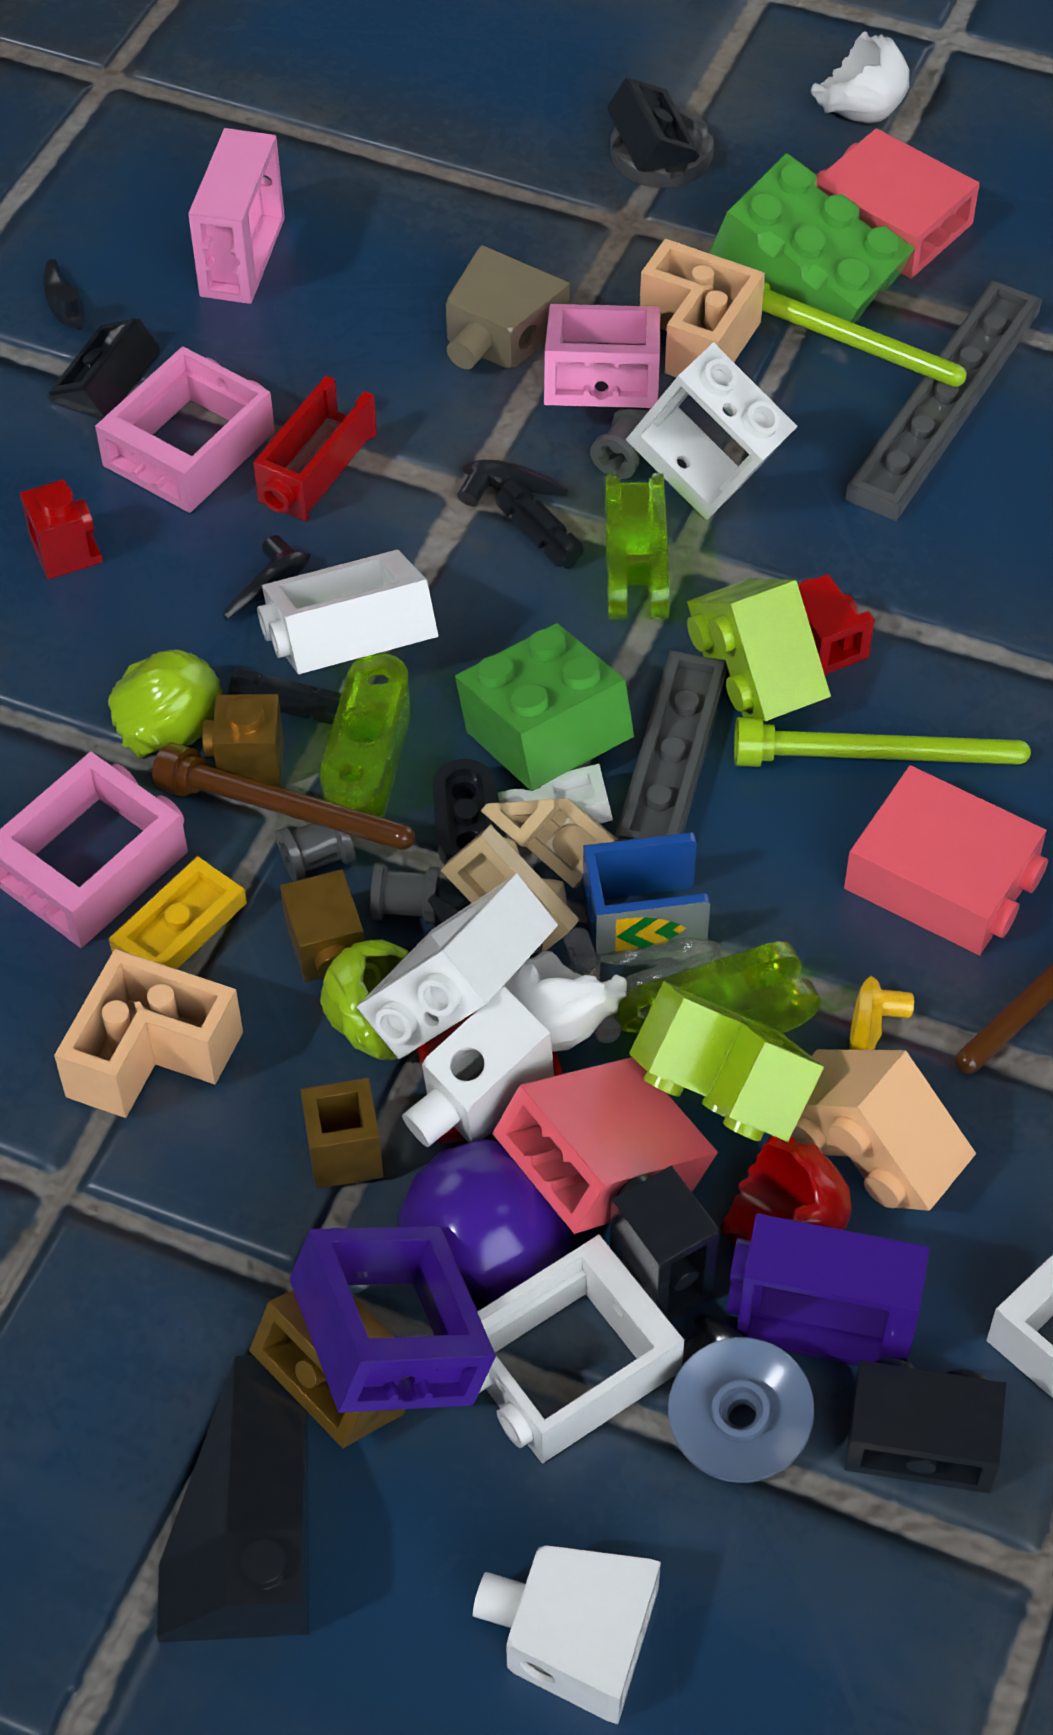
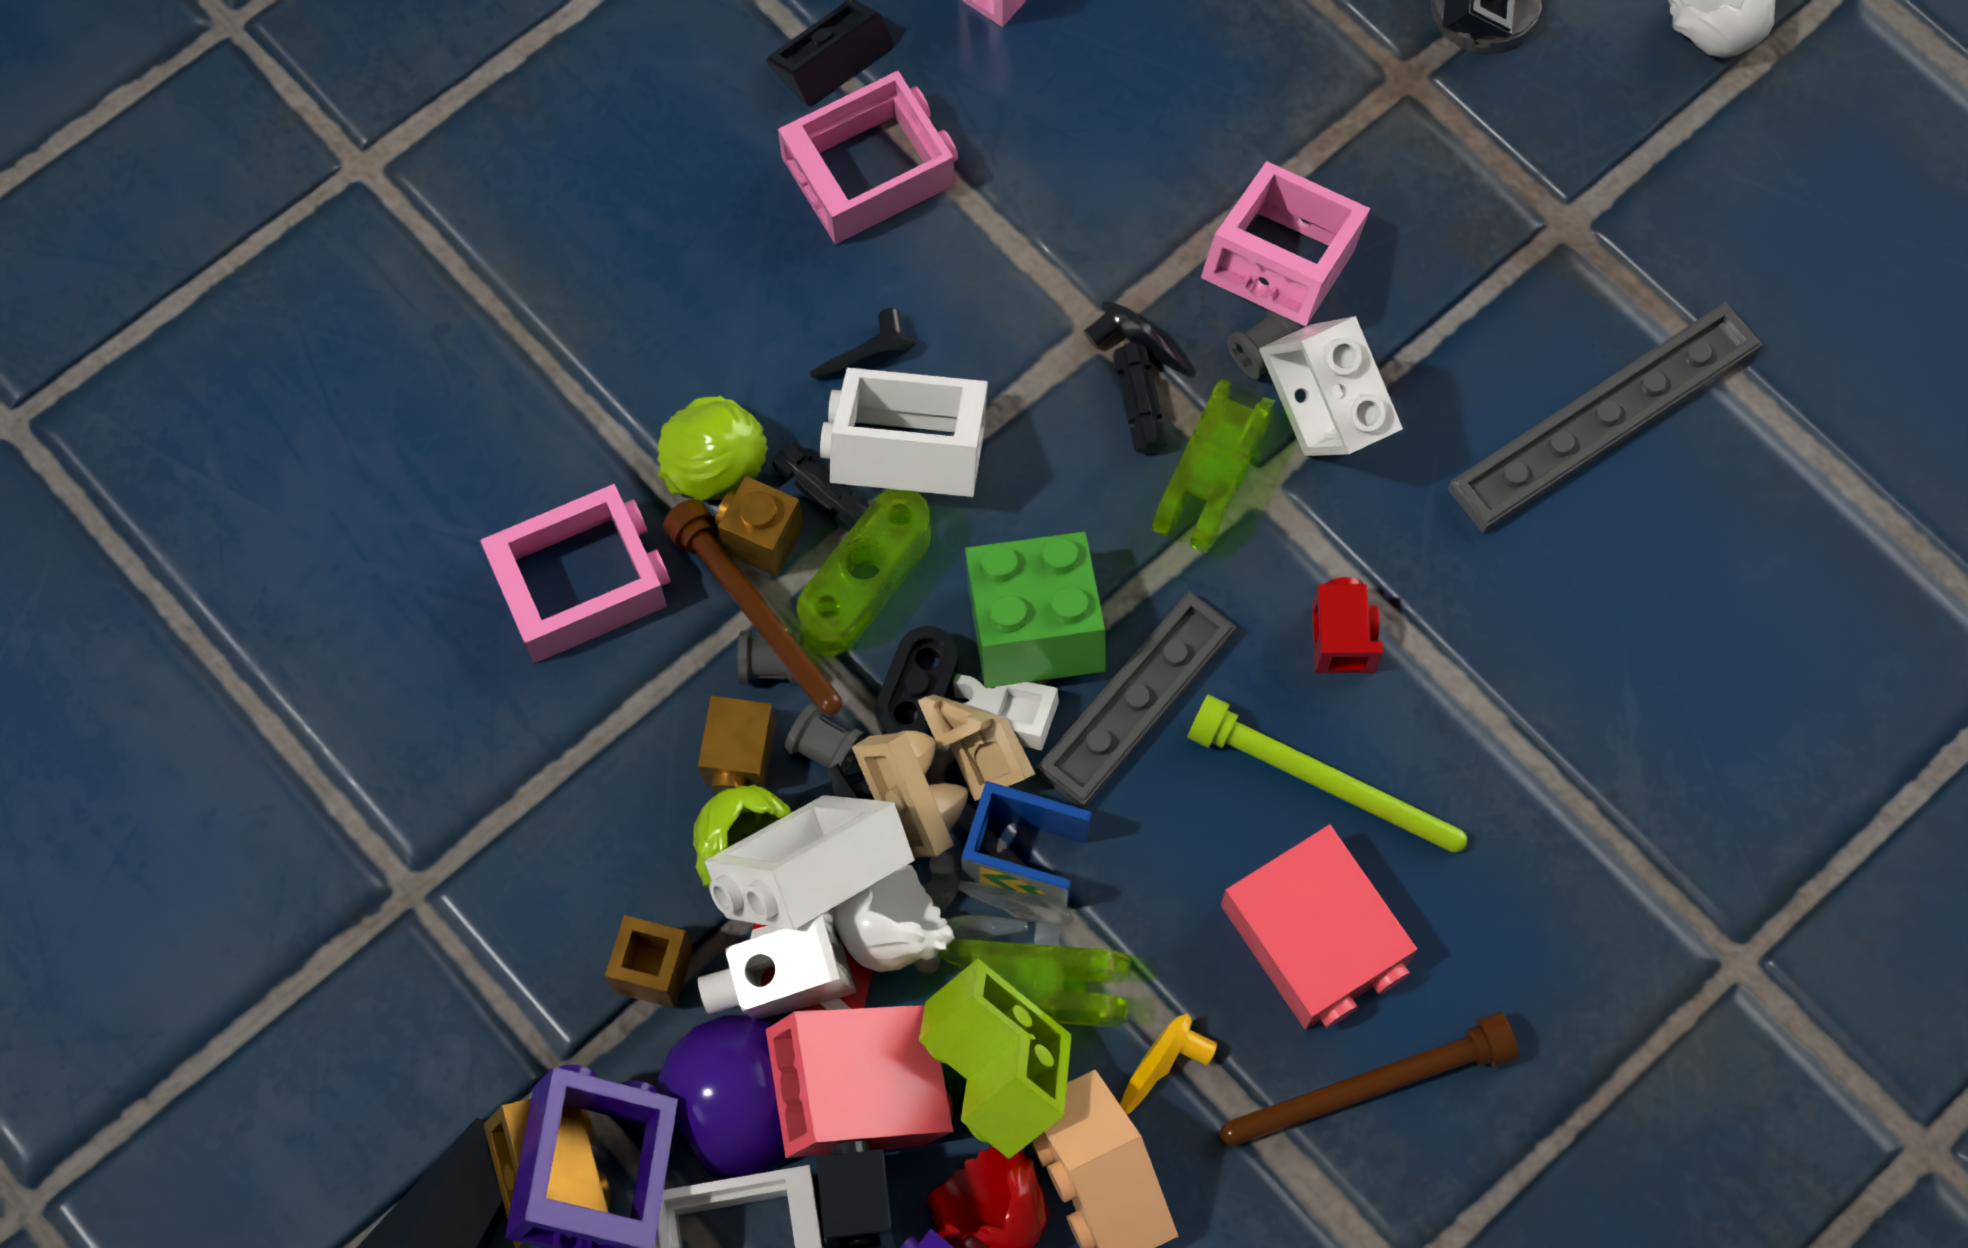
camera: 25 degrees right, 15 degrees up
(60, 529) = (702, 224): red brick -> none
(142, 1019) = (528, 772): light nougat brick -> none
(181, 916) = (619, 680): yellow plate -> none
(312, 450) = (970, 229): red window -> none
(500, 310) = (1221, 141): dark tan torso -> none
(701, 302) = (1419, 229): light nougat brick -> none
(766, 645) = (1266, 619): lime brick -> none
(811, 242) = (1560, 193): bright green piece -> none
(862, 338) = (1474, 218): lime piece -> none
(904, 192) = (1675, 169): coral brick -> none

